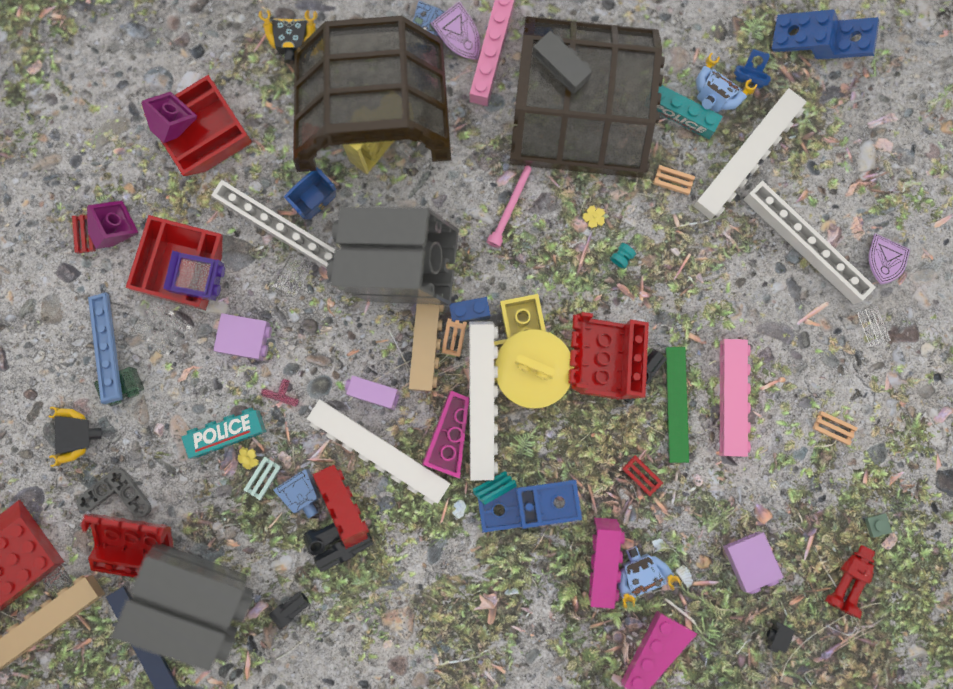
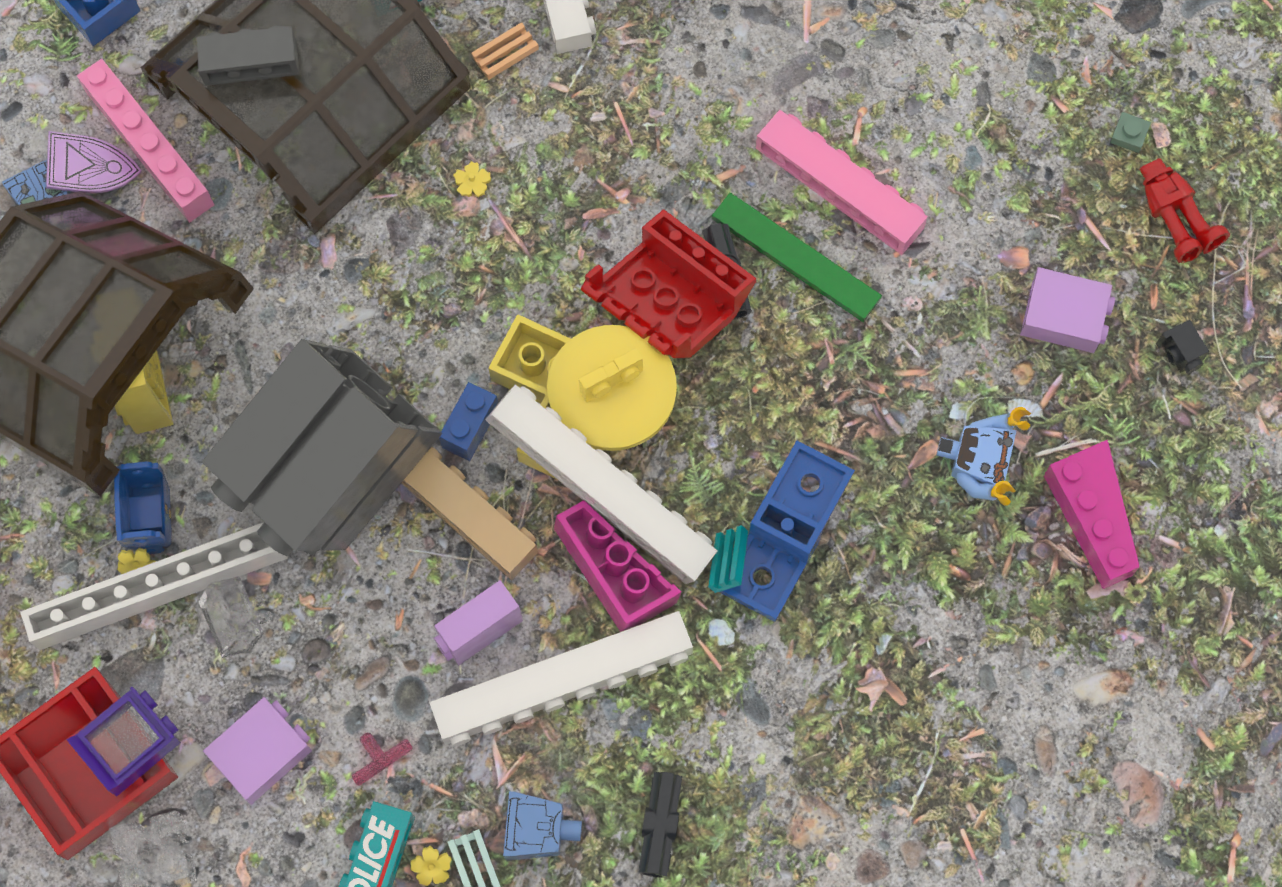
camera: 55 degrees left, 10 degrees down
(286, 212) = (129, 561): none -> light yellow plant
(317, 539) = (620, 849): black piece -> none
(340, 506) = (599, 777): red wedge -> none
(456, 325) = (473, 446): light nougat tile -> none
(495, 238) = (399, 320): bright pink piece -> none
(605, 563) = (934, 490): dark pink wedge -> none
(623, 255) = (552, 180): teal wheel -> none
(647, 470) = (855, 377): red tile -> none
(850, 434) = (992, 82): light nougat tile -> none

